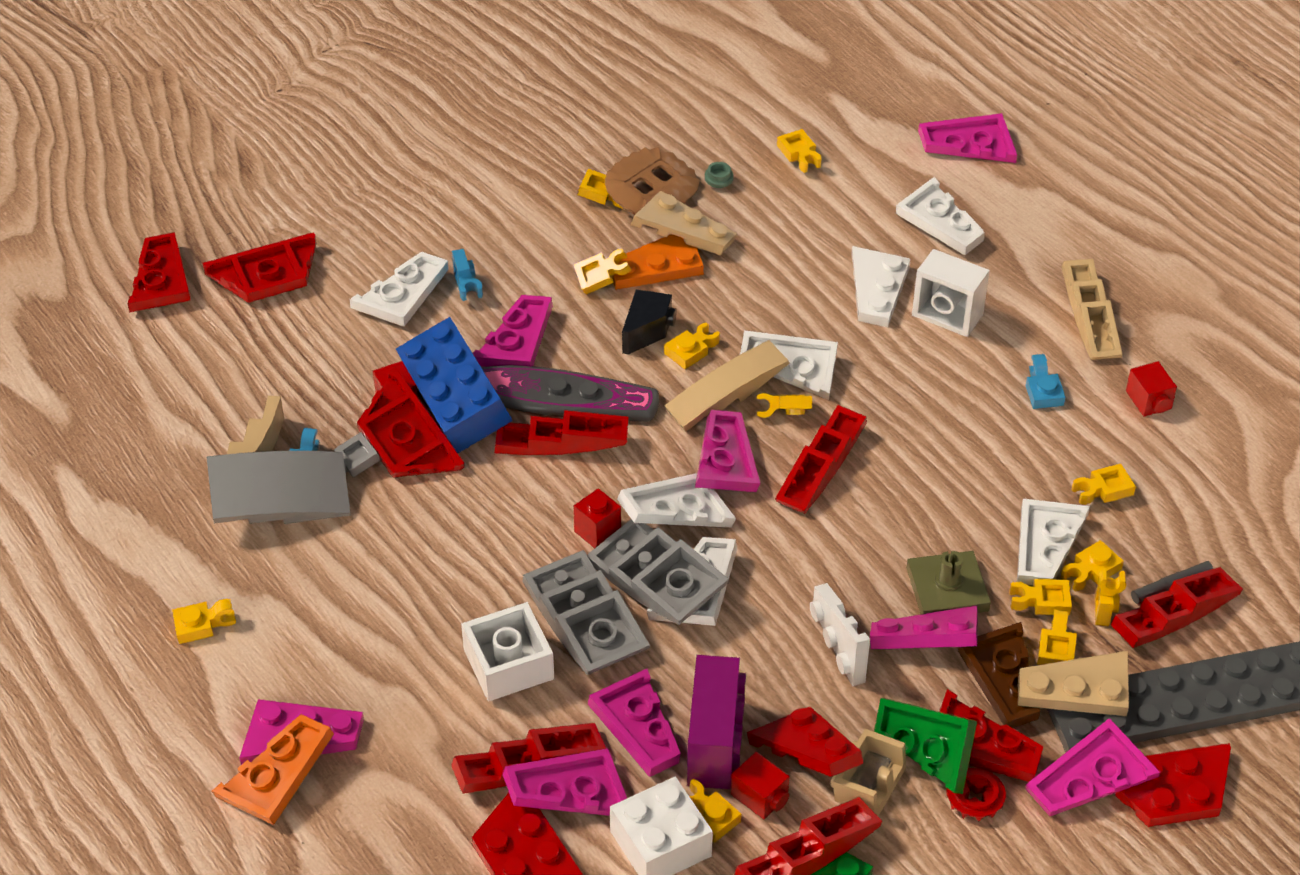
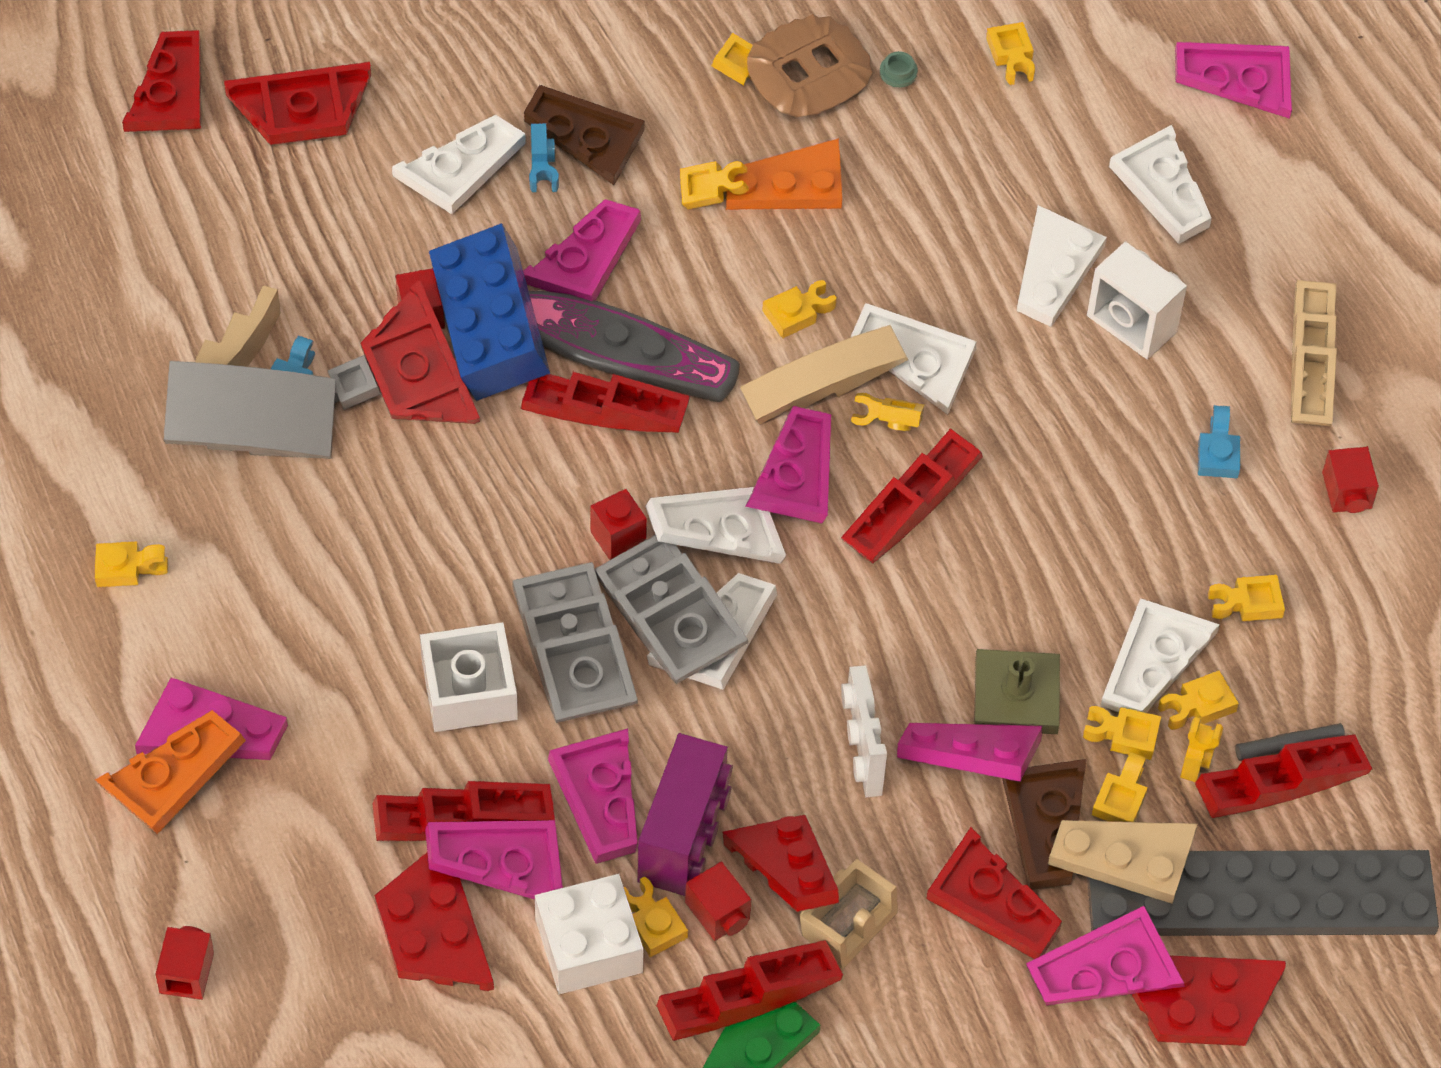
camera: 10 degrees right, 10 degrees up
(494, 252) = (586, 130): none -> reddish brown wing
(647, 320) = (750, 264): black slope -> none
(683, 221) = (827, 129): tan wing -> none
(931, 739) = (928, 884): green wing -> none
(983, 782) = (975, 946): red gear -> none

